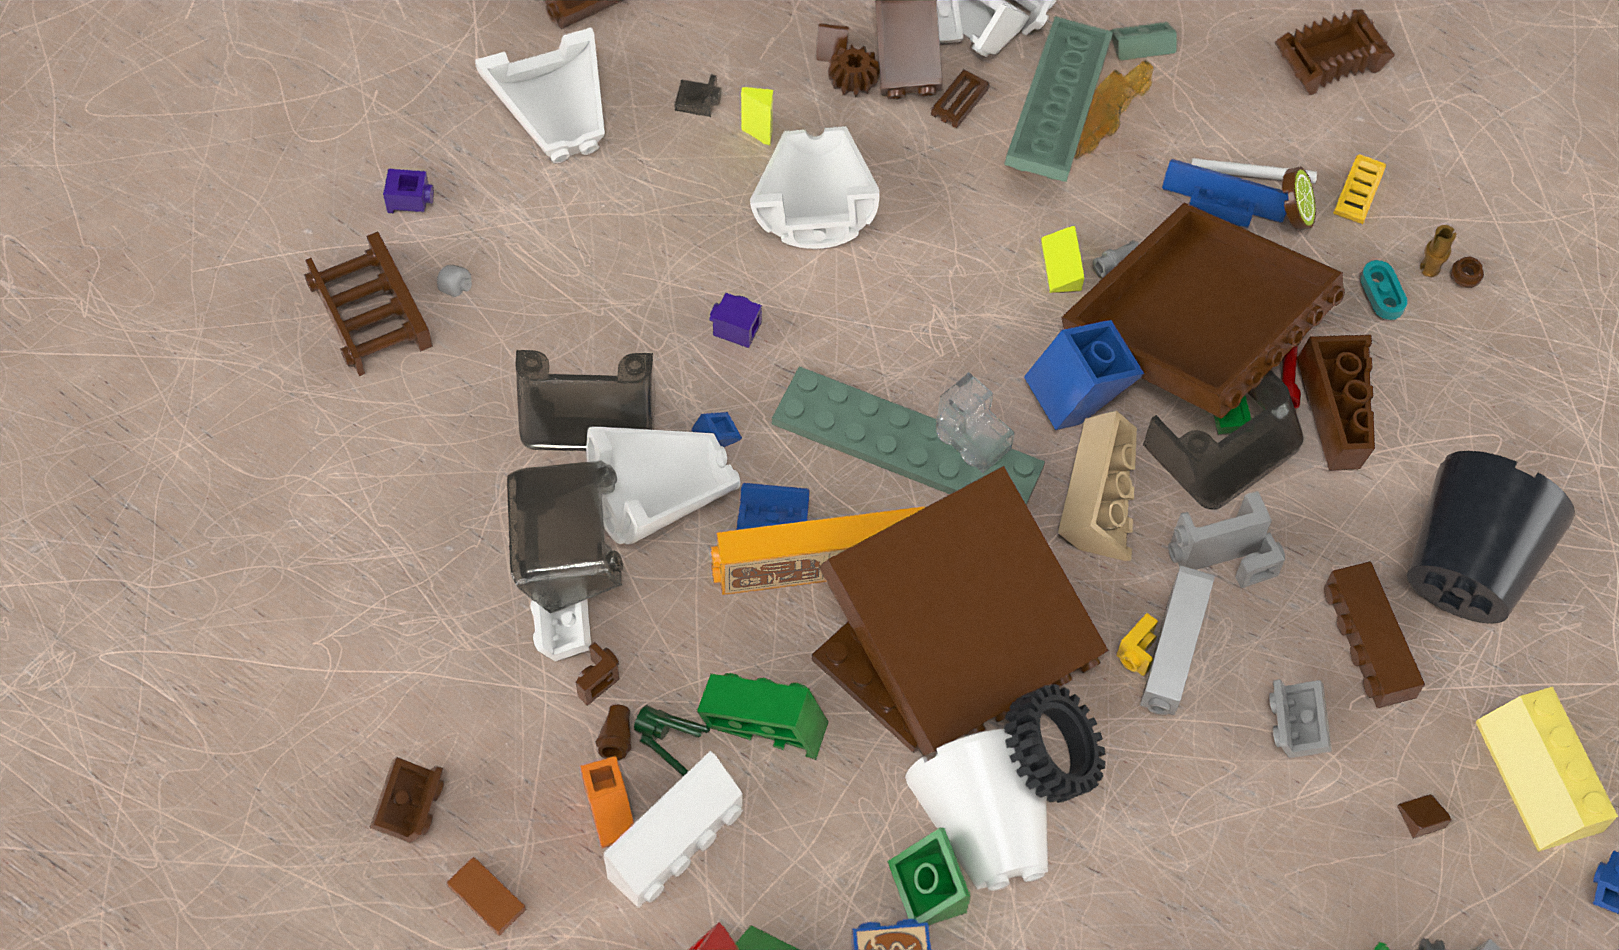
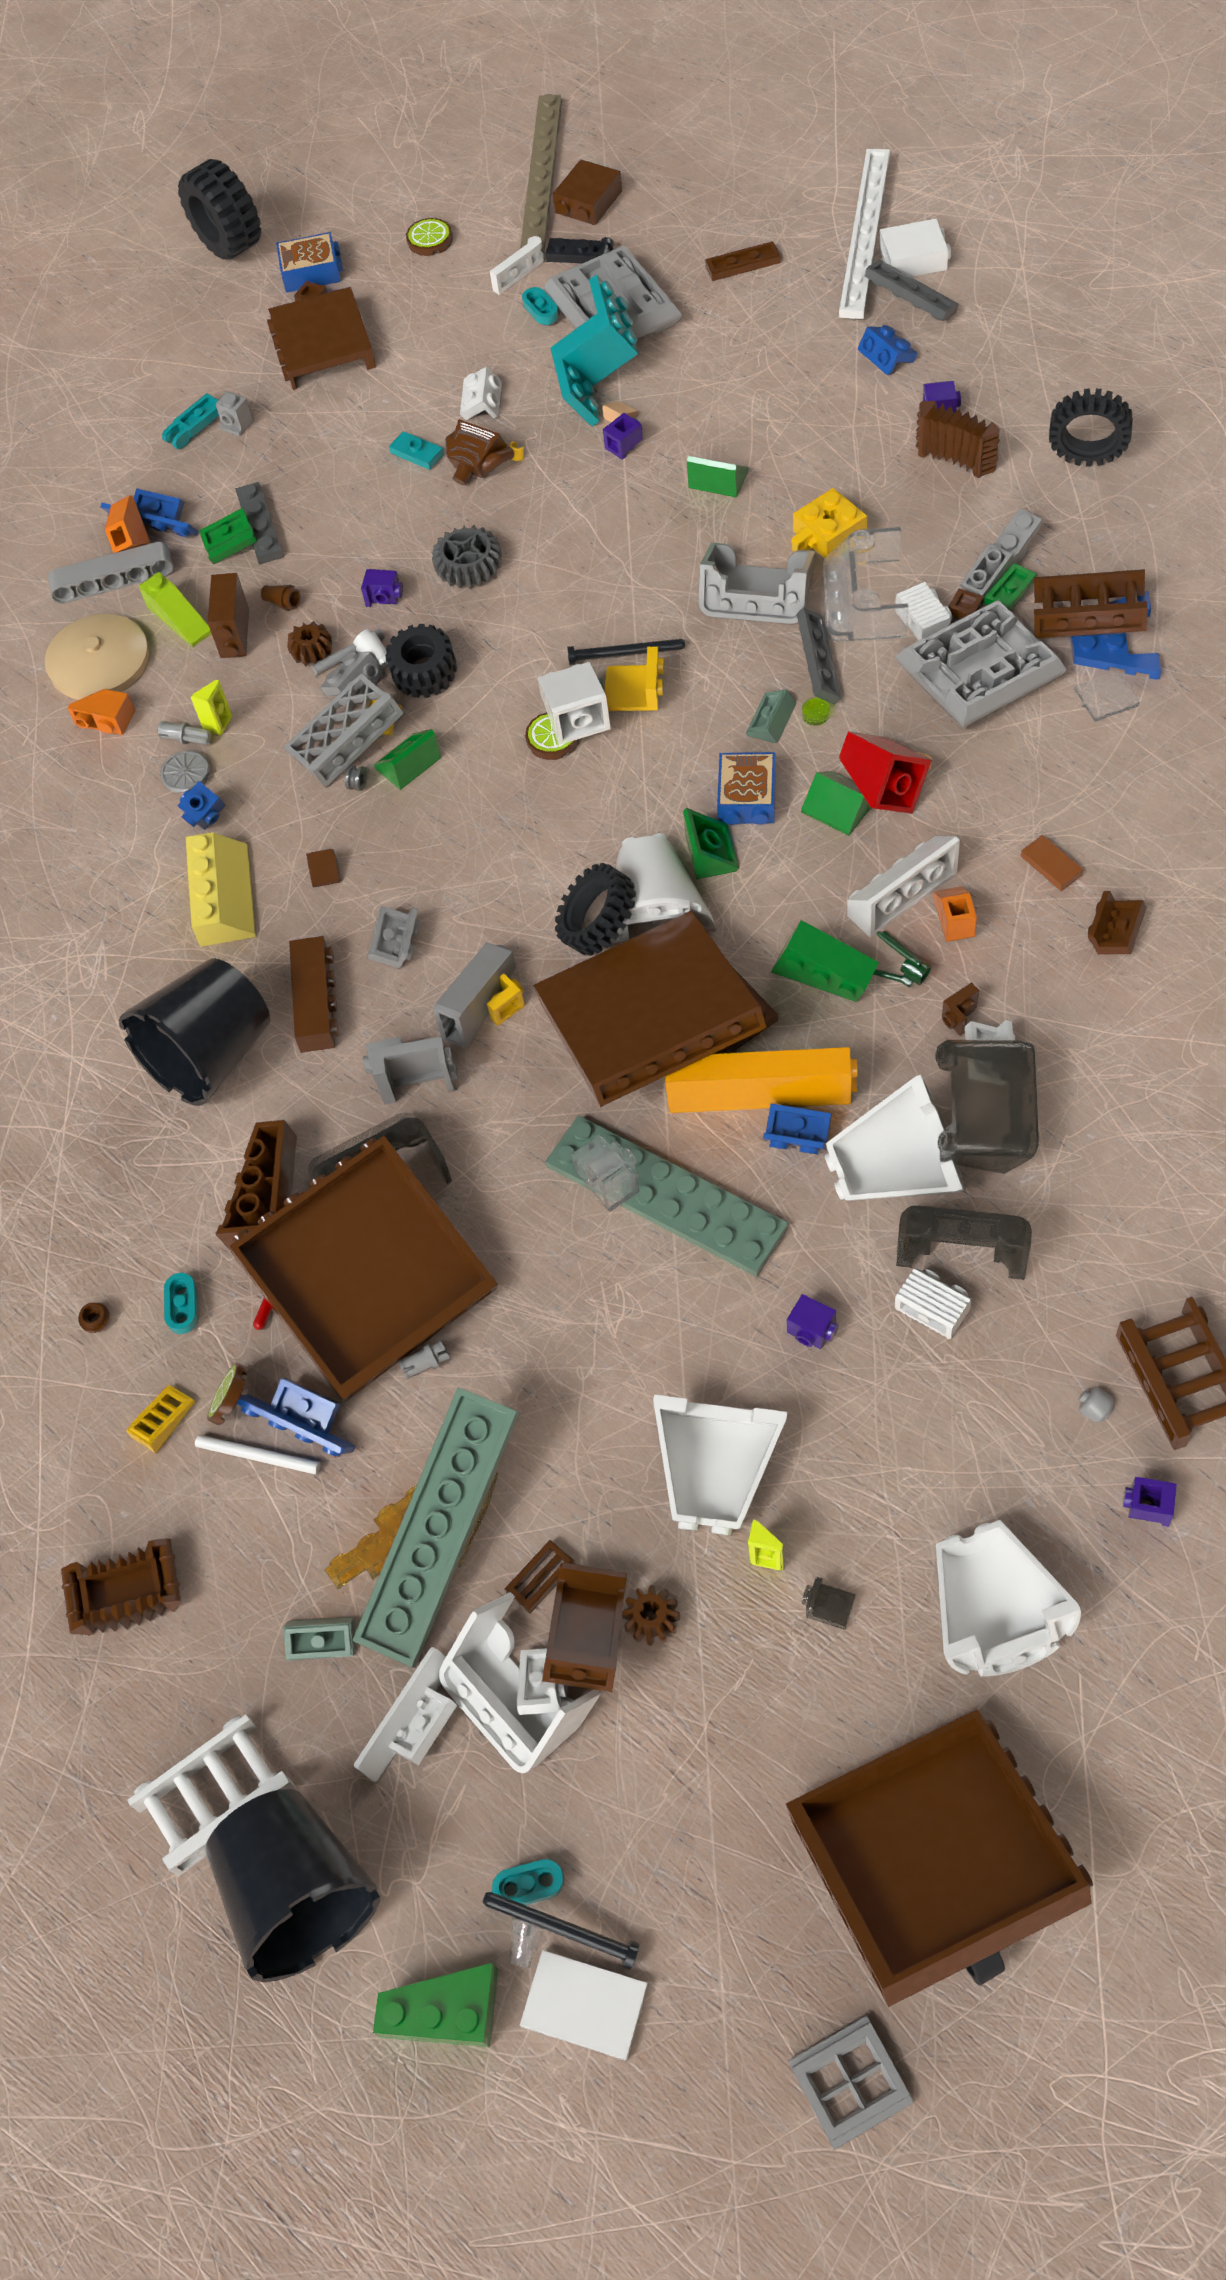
camera: 160 degrees left, 0 degrees up
(607, 342) = (933, 1302): none -> white brick
(615, 733) = (946, 962): reddish brown cone -> none
(720, 425) = (841, 1220): blue slope -> none
(829, 40) = (669, 1660): slope -> none
(1063, 261) = (479, 1363): neon yellow slope -> none
(1082, 373) = (492, 1213): blue slope -> none
(1100, 488) = (502, 1129): tan wedge -> none
(1438, 251) = (117, 1320): pearl gold pin -> none

